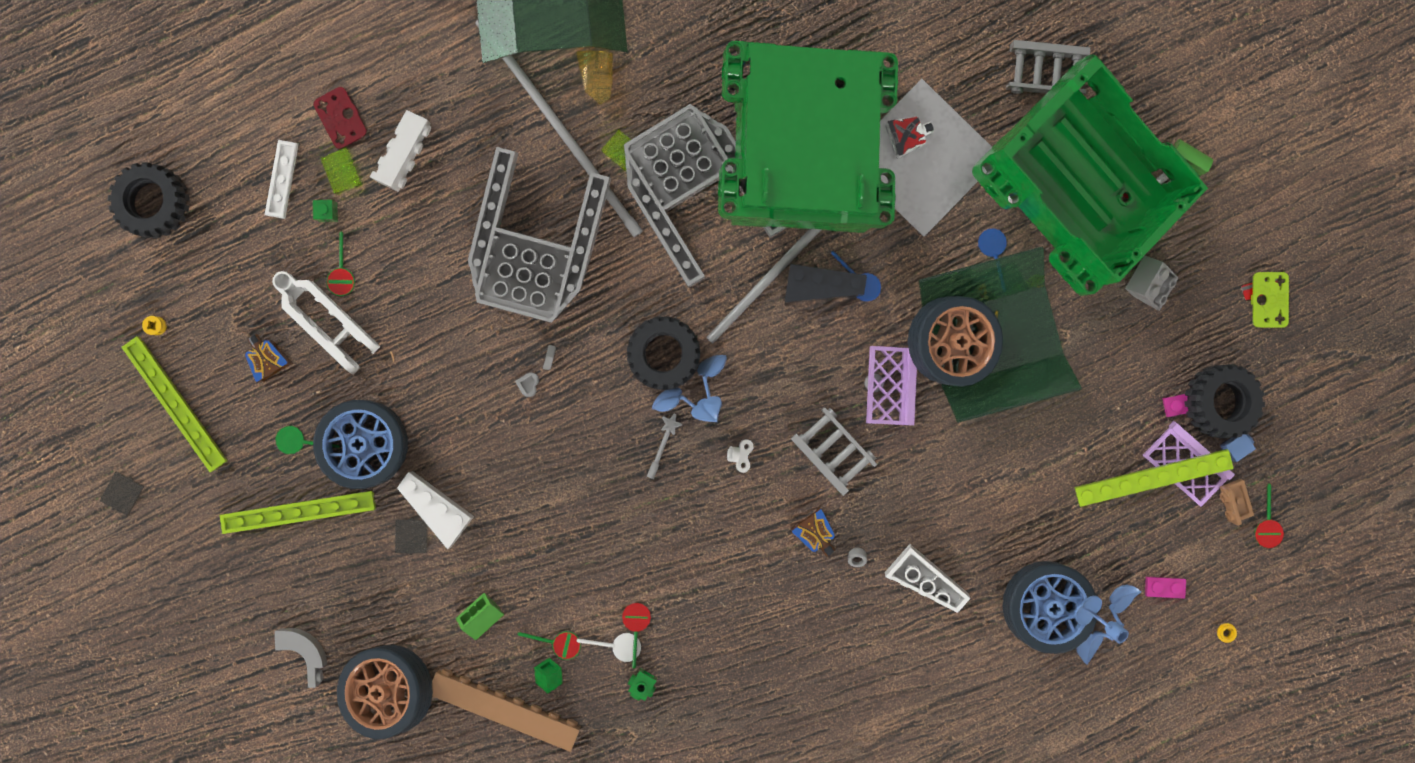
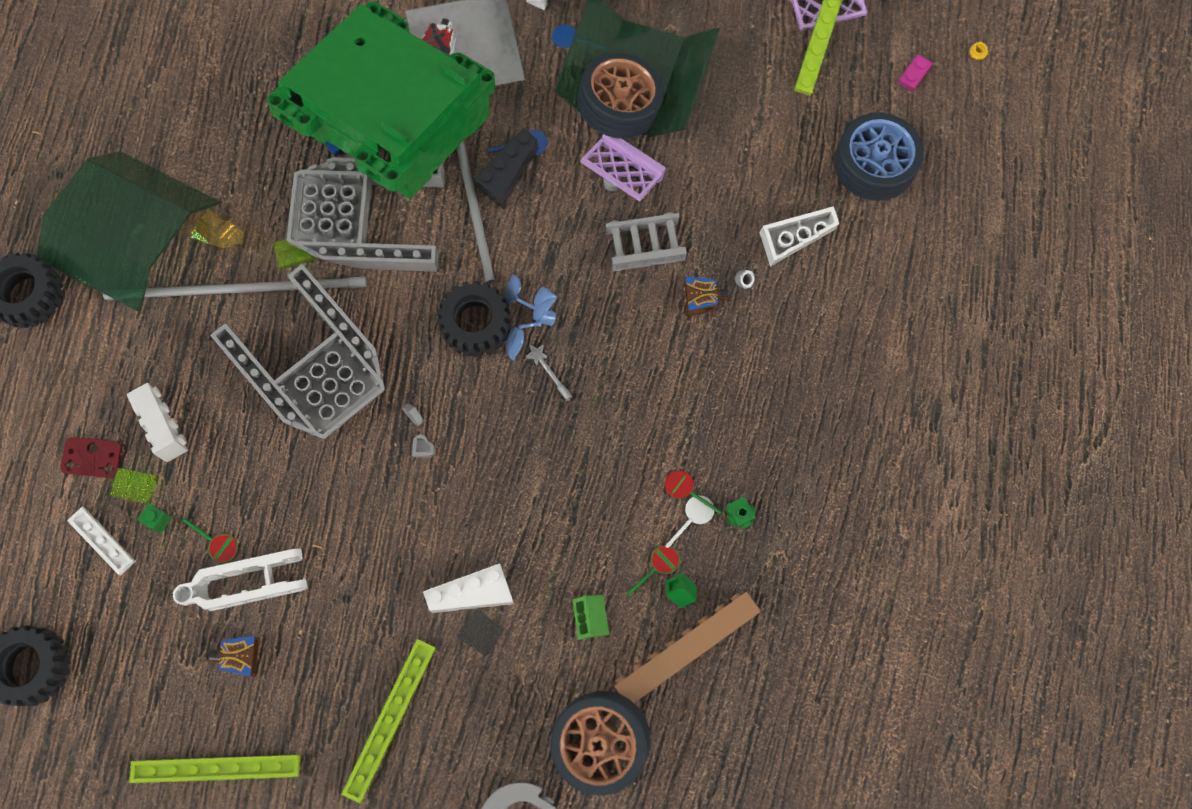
camera: 60 degrees left, 15 degrees down
(159, 325) = (140, 739): yellow wheel -> none
(291, 440) = (324, 683): green piece -> none
(336, 420) = (334, 614): wheel -> none
(740, 455) = (599, 315): white piece -> none
(1120, 600) = (925, 114): medium blue plant -> none

